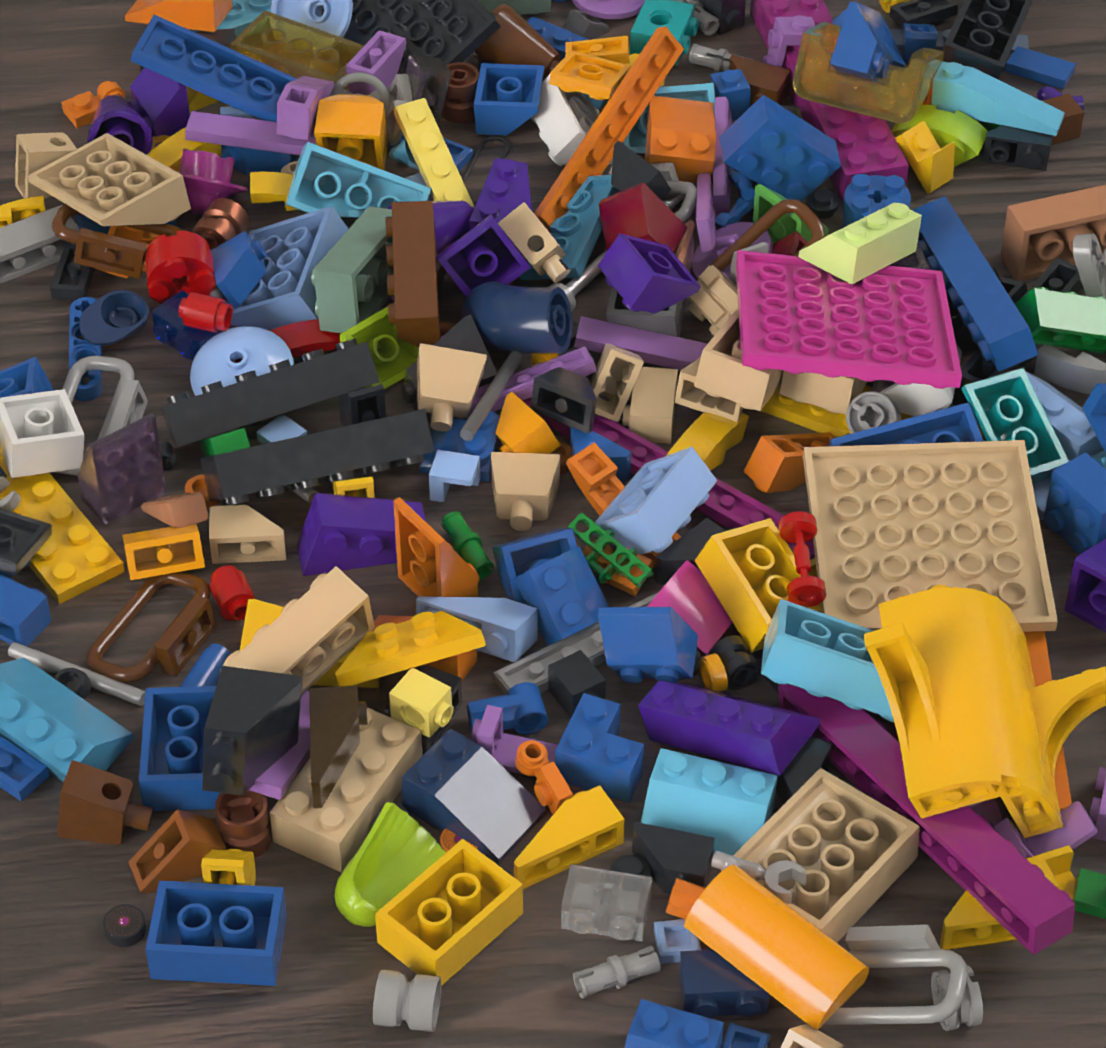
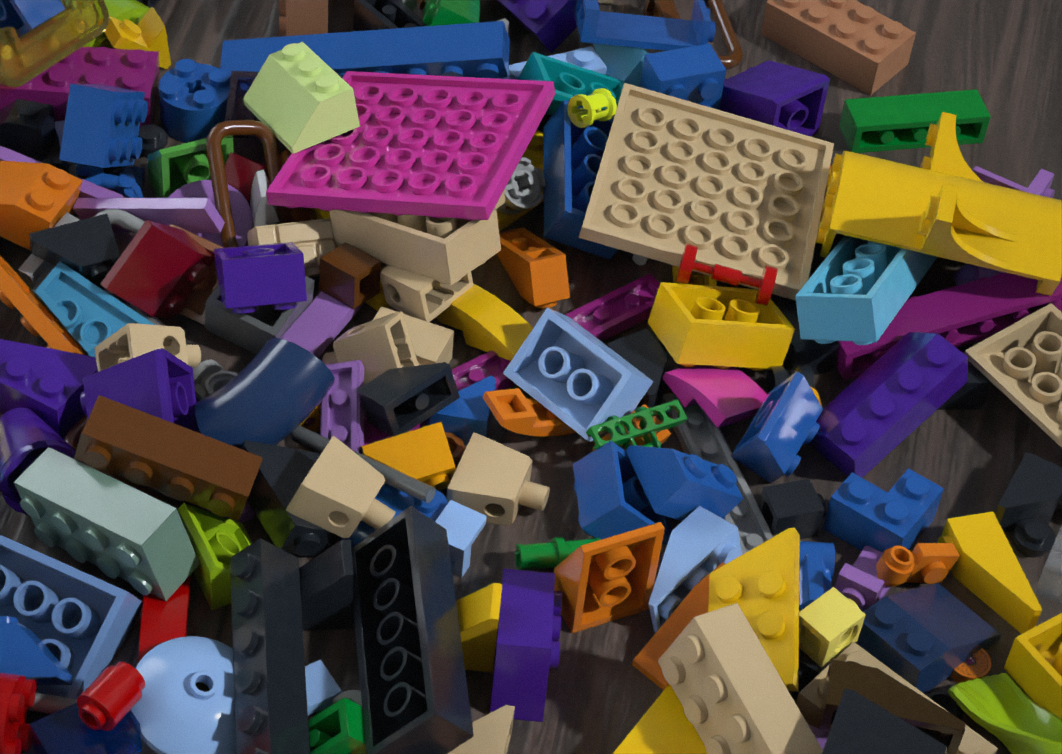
camera: 80 degrees left, 0 degrees up
(697, 337) = (349, 275): none -> reddish brown brick
(709, 799) = (972, 452): medium azure slope -> none
(964, 420) = (591, 107): none -> neon yellow bush

